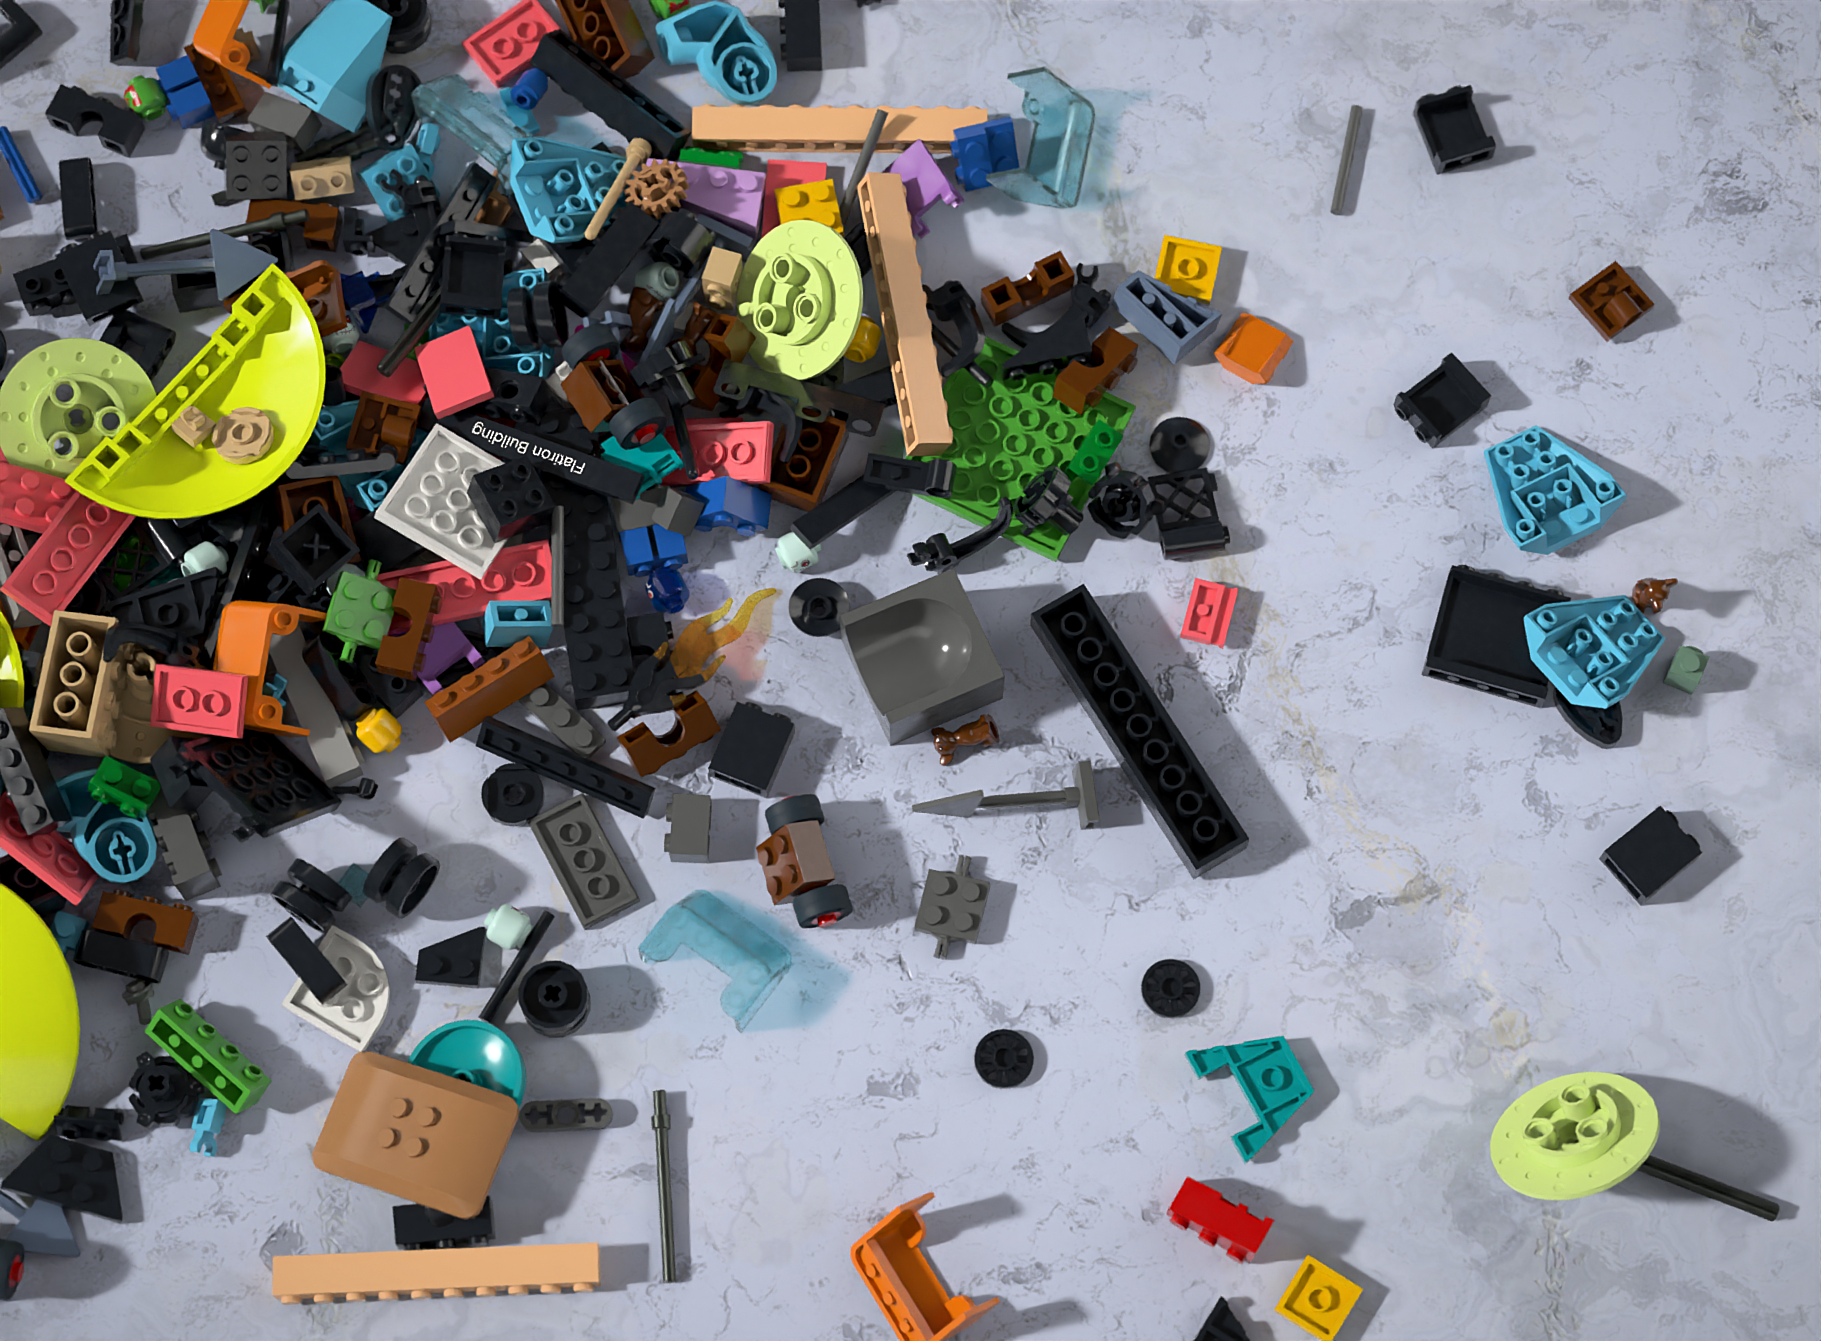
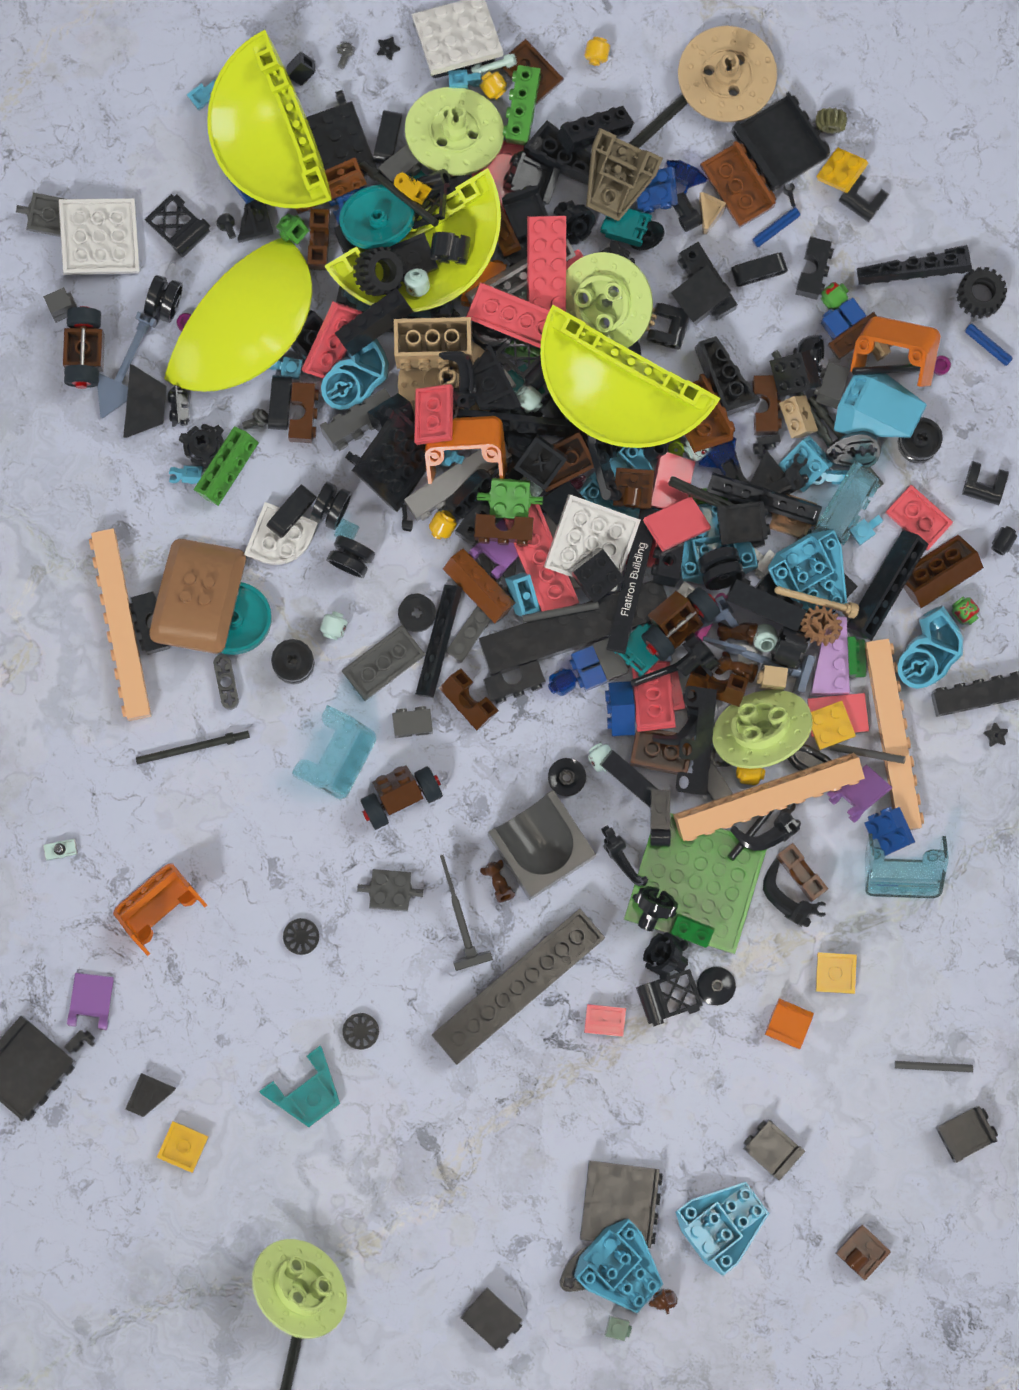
camera: 75 degrees right, 10 degrees up
(124, 787) = (376, 382): green bracket -> none
(193, 426) = (610, 373): tan tile -> none
(232, 263) = (723, 374): sand blue piece -> none
(243, 435) = (609, 404): tan tile -> none
(276, 221) = (759, 394): pearl dark grey bar -> none
(453, 961) = (309, 598): black wing -> none
(513, 237) = (775, 524): black tile -> none
(516, 967) = (311, 635): black bar -> none
(529, 89) = (883, 533): blue brick -> none
(677, 511) = (610, 678): dark grey panel -> none
(683, 671) = (508, 700): piece -> none
(752, 748) = (469, 751): black brick -> none
(1051, 351) = (763, 897): black slope -> none
(1084, 386) = (738, 918): reddish brown arch -> none
(1164, 317) = (798, 963): sand blue wedge -> none
(1218, 1220) = (219, 1080): red wedge -> none

